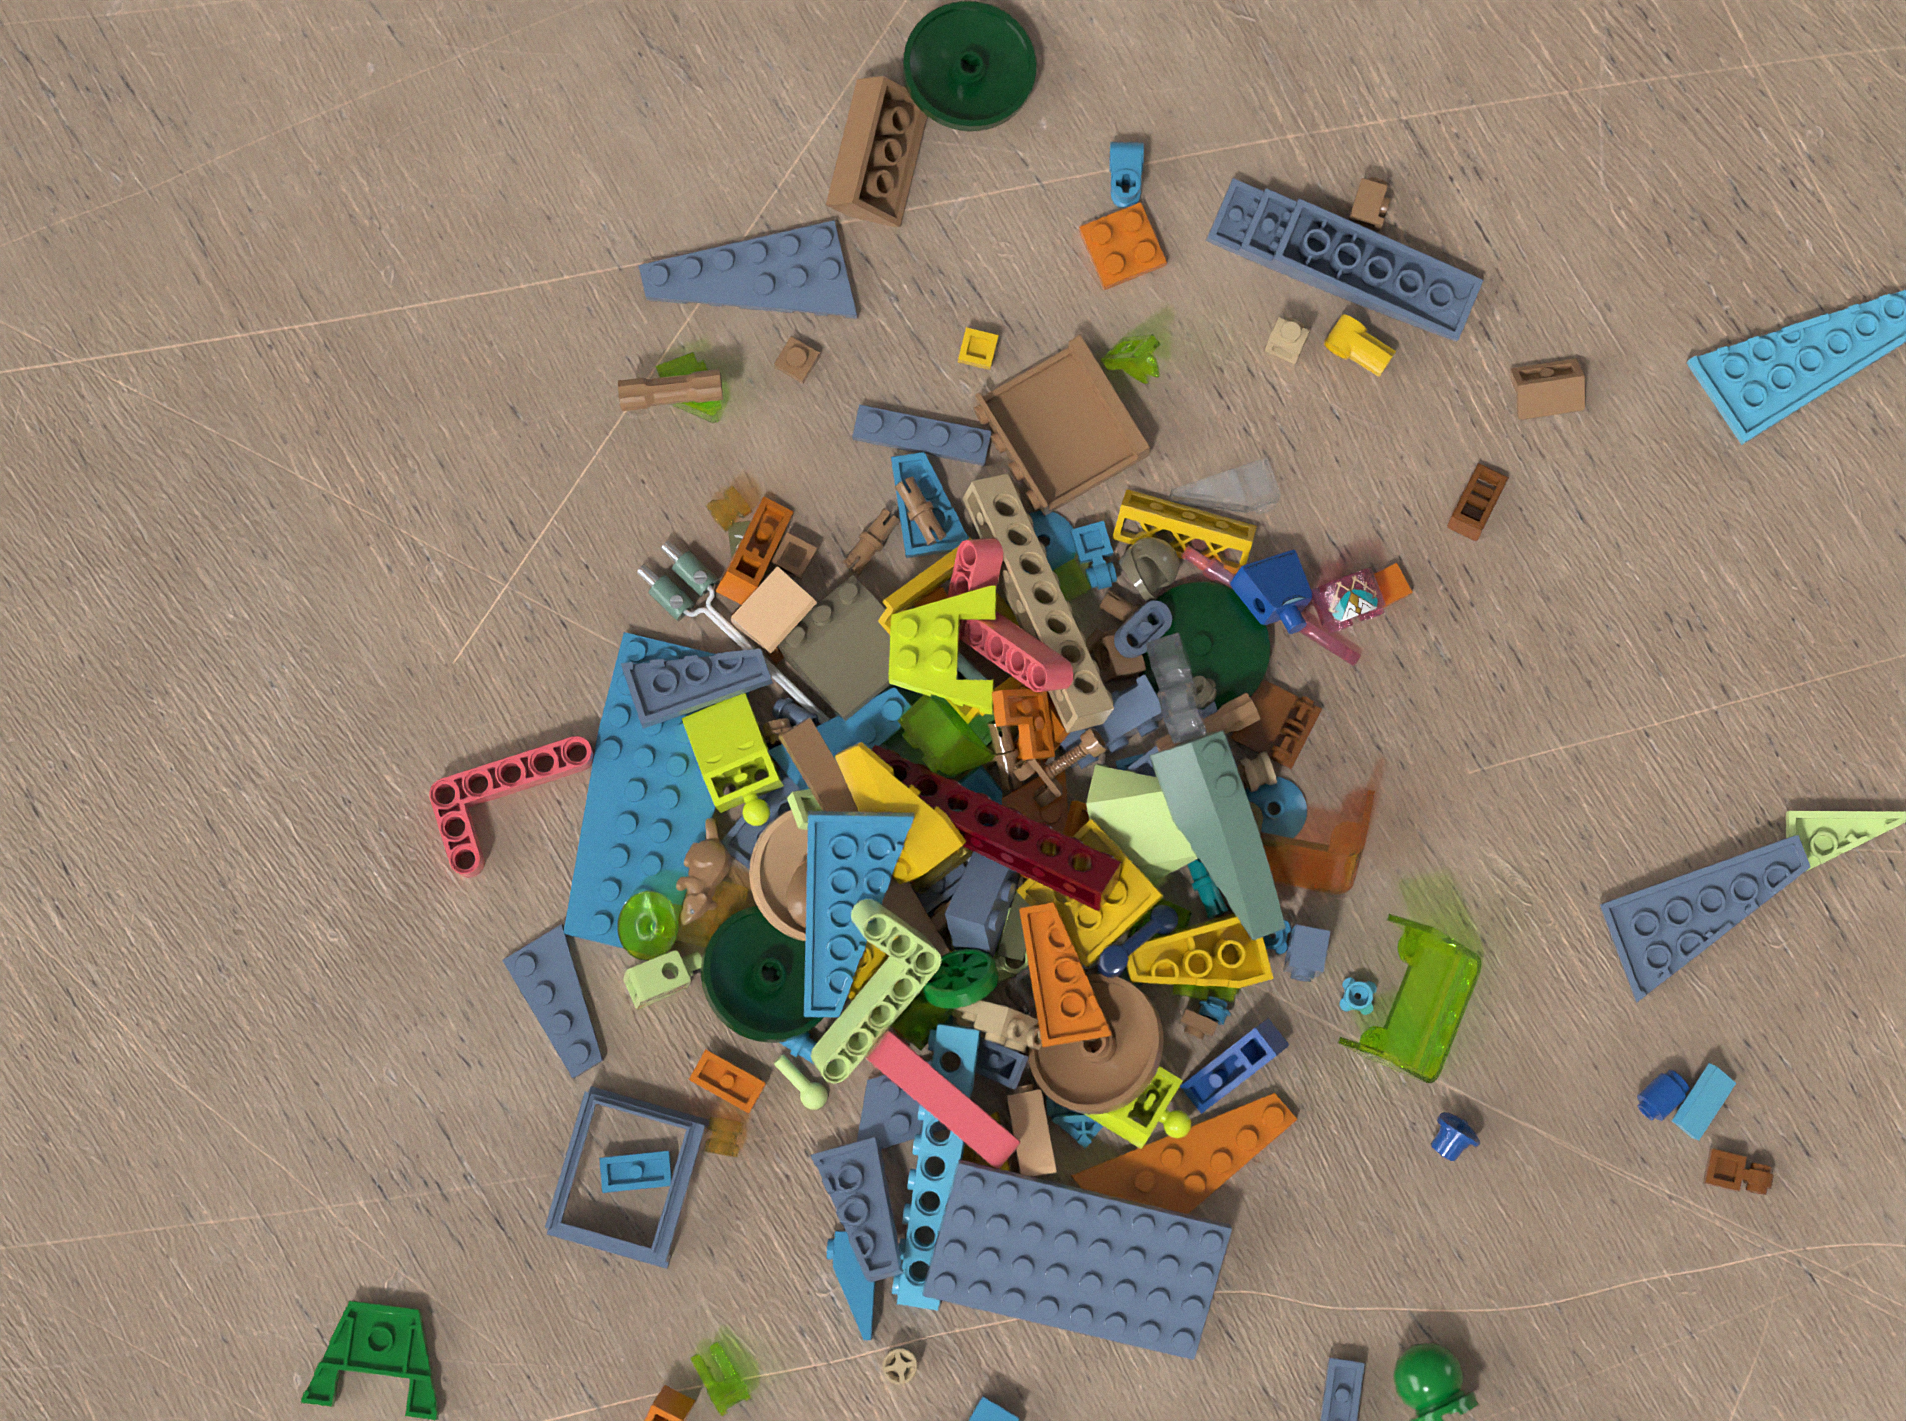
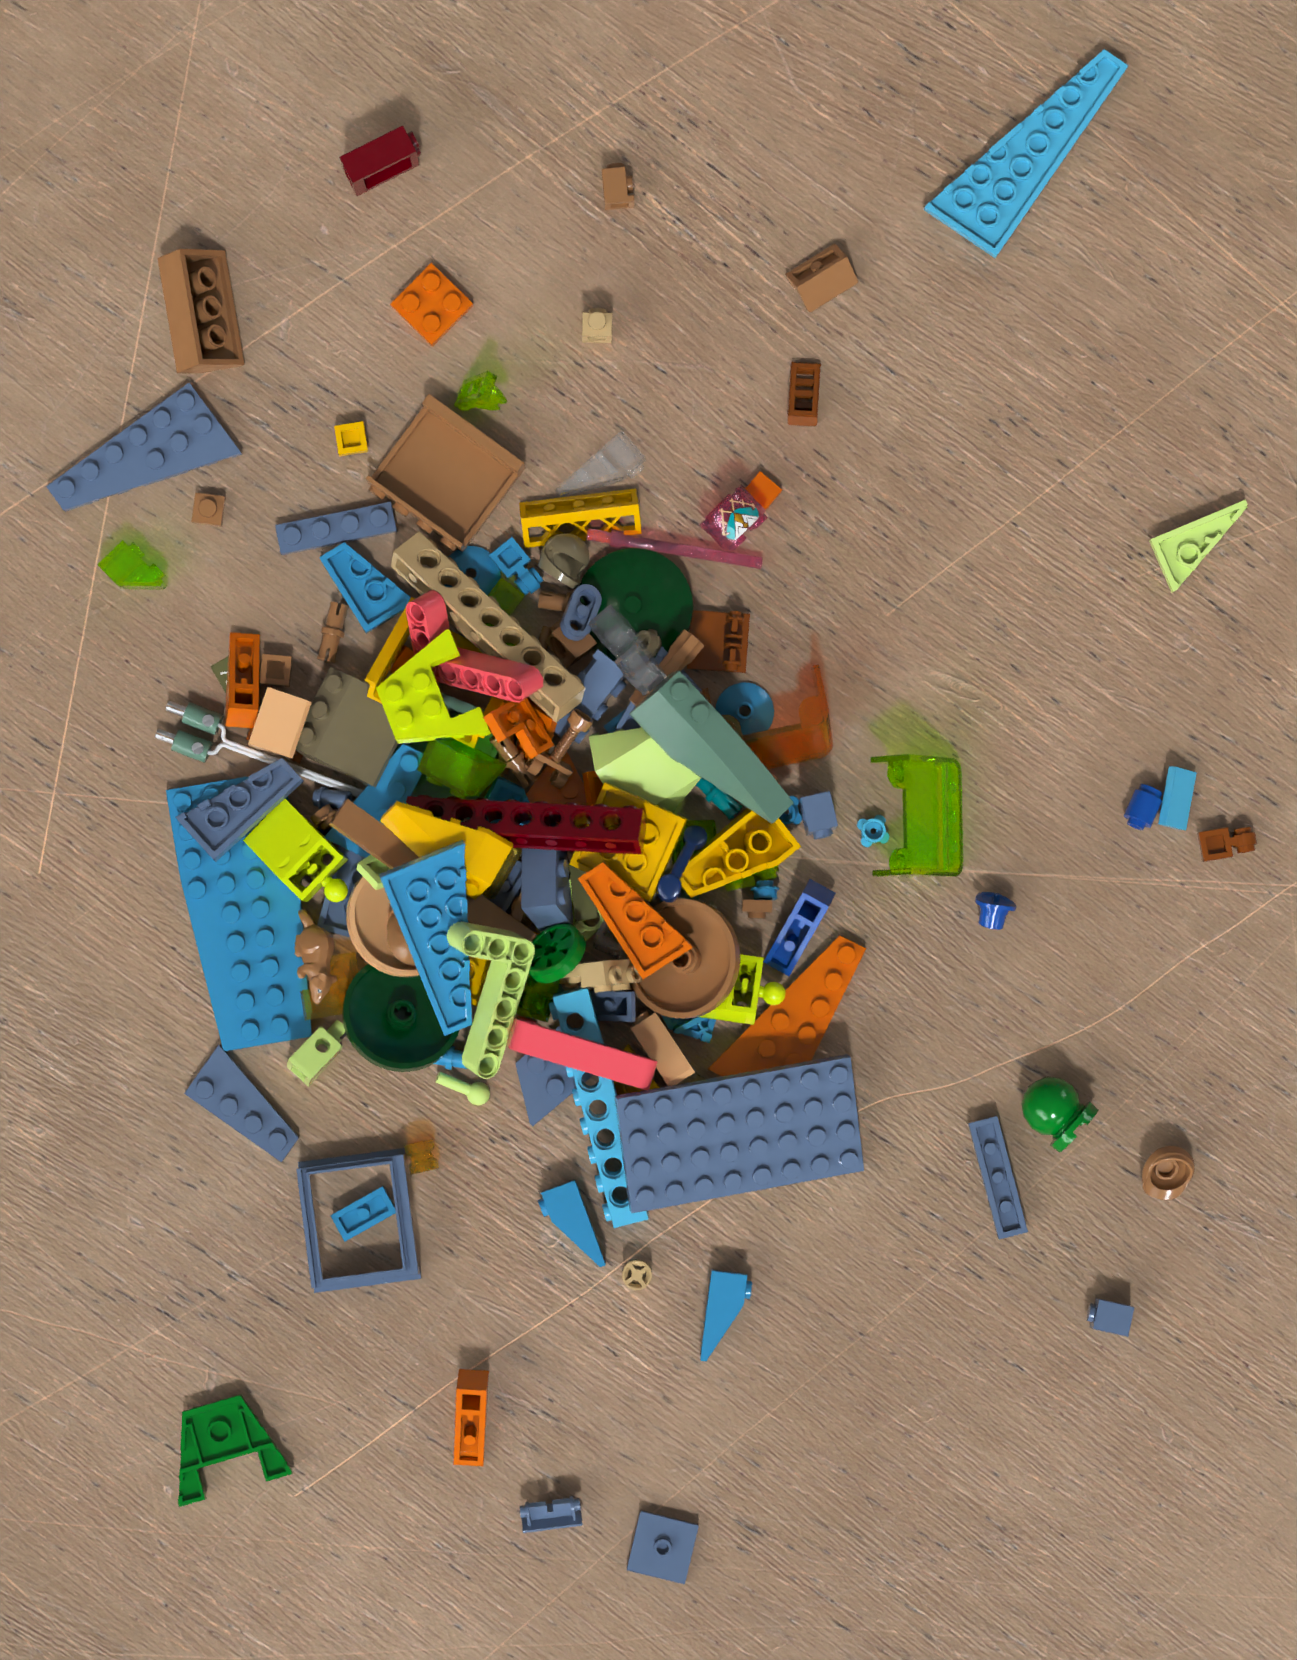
camera: 30 degrees left, 5 degrees up
(497, 788) = (119, 959): coral beam -> none
(636, 925) = (279, 1020): clear neon green dish -> none
(696, 387) = (137, 569): medium nougat axle -> none
(726, 510) = (205, 656): clear yellow wheel -> none
(727, 1081) = (405, 1112): orange plate -> none
(731, 1381) = (510, 1344): clear neon green piece -> none
(860, 1193) = (551, 1158): sand blue wing -> none
(920, 511) = (362, 591): medium nougat pin -> none
(969, 66) = (244, 209): dark green dish -> none
(1126, 169) = (407, 240): dark azure piece -> none
(1133, 73) = (381, 160): none -> dark red window
(1258, 771) = (720, 686): tan wheel -> none
(1275, 590) = (672, 535): blue torso -> none
(1344, 259) = (614, 241): sand blue slope -> none
(1352, 341) = (648, 305): yellow piece -> none
(1680, 918) = (1099, 662): sand blue wing -> none

